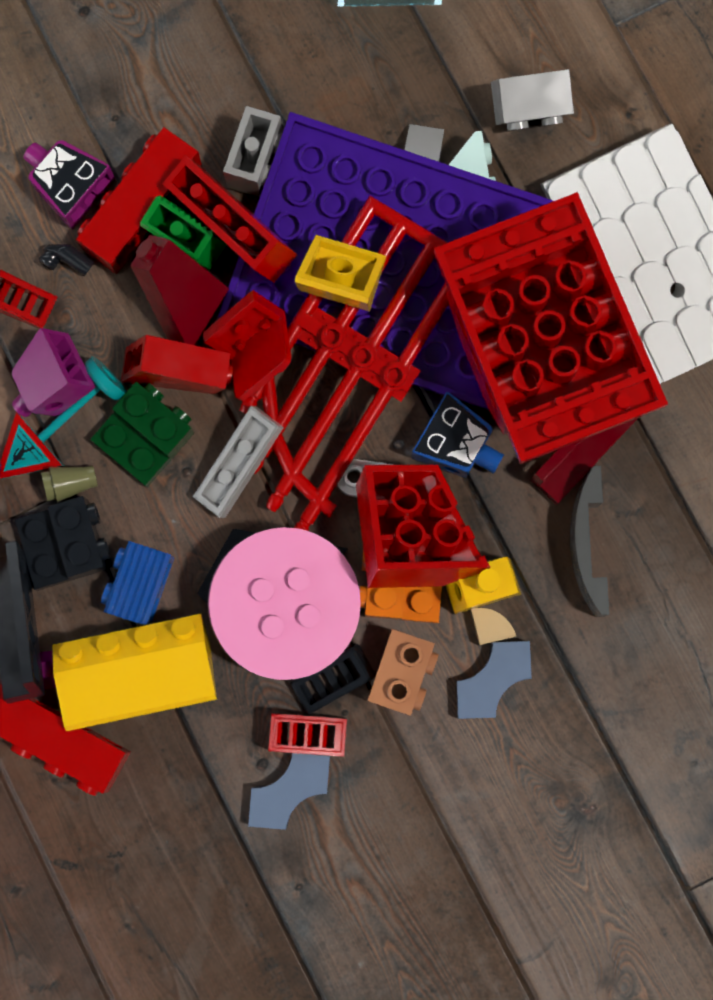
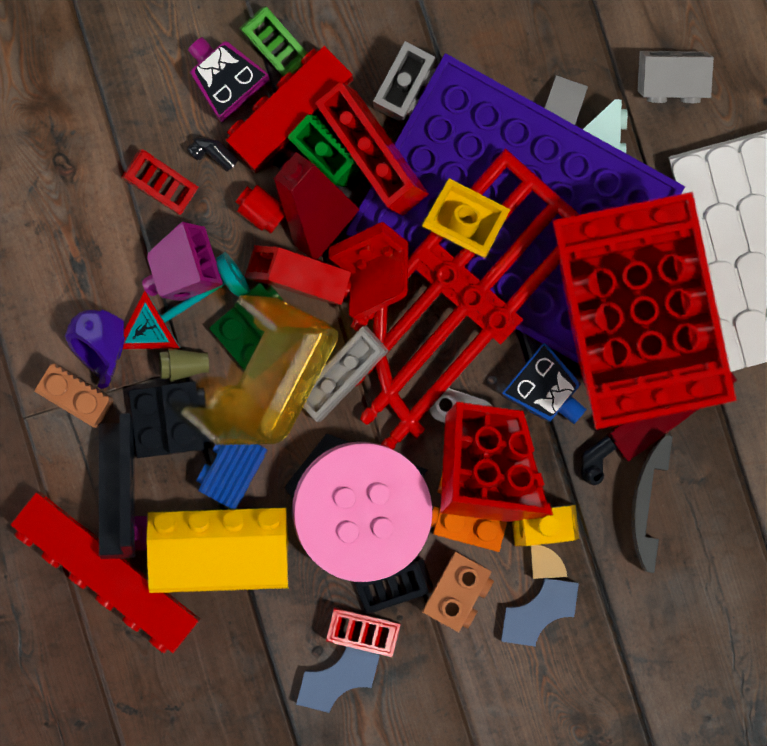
camera: 10 degrees right, 5 degrees up
(99, 111) = (265, 14): none -> bright green slope
(125, 307) = (260, 208): none -> red brick
(169, 475) = (275, 380): none -> clear yellow windscreen
(520, 508) = (593, 460): none -> black arm

